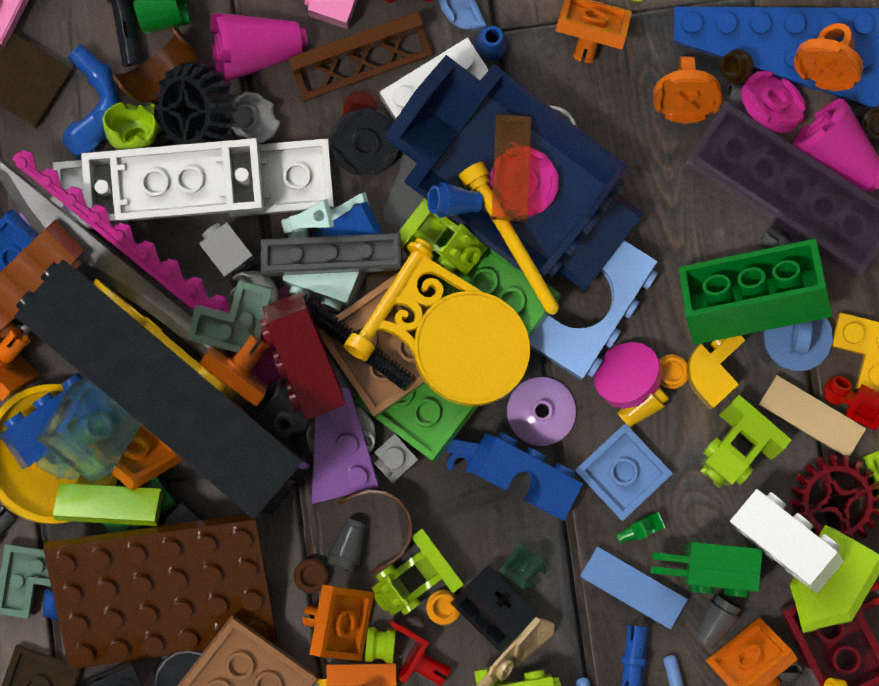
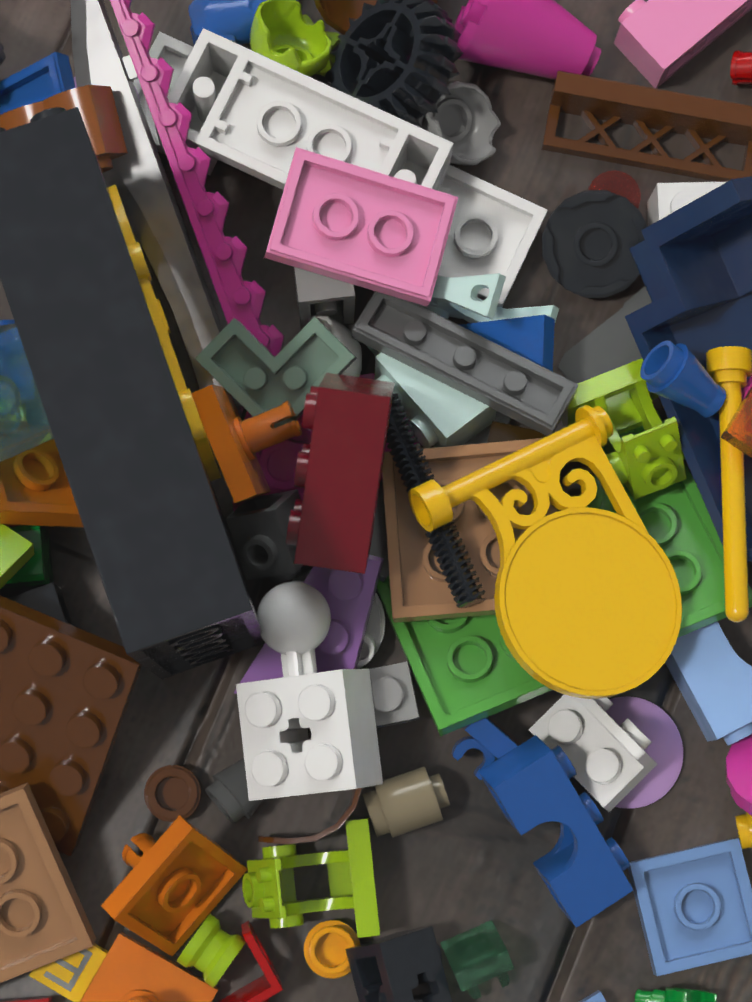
camera: 25 degrees right, 5 degrees down
(234, 216) = (361, 227): none -> bright pink tile
(367, 481) = (330, 703): none -> white brick
(437, 508) = (406, 802): none -> dark tan brick
(523, 420) = (605, 755): none -> white bracket

